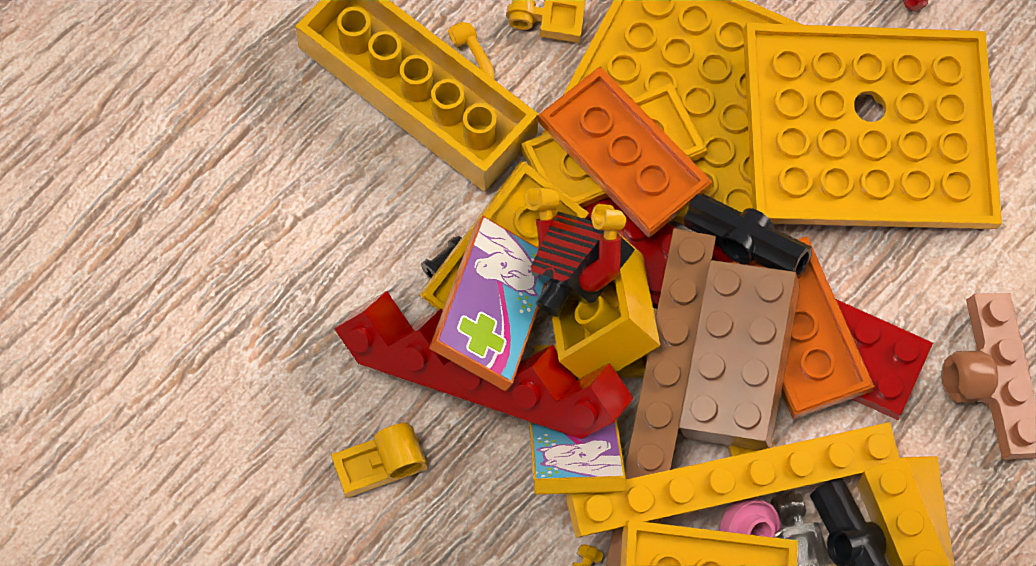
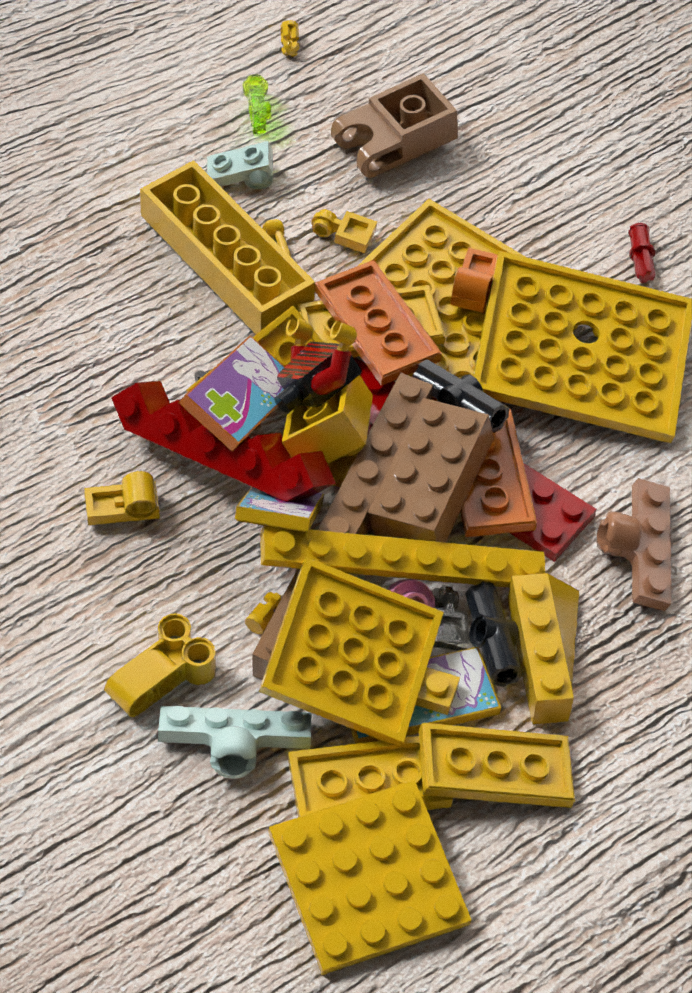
camera: 10 degrees right, 15 degrees down
(724, 64) = (474, 280): none -> orange plate

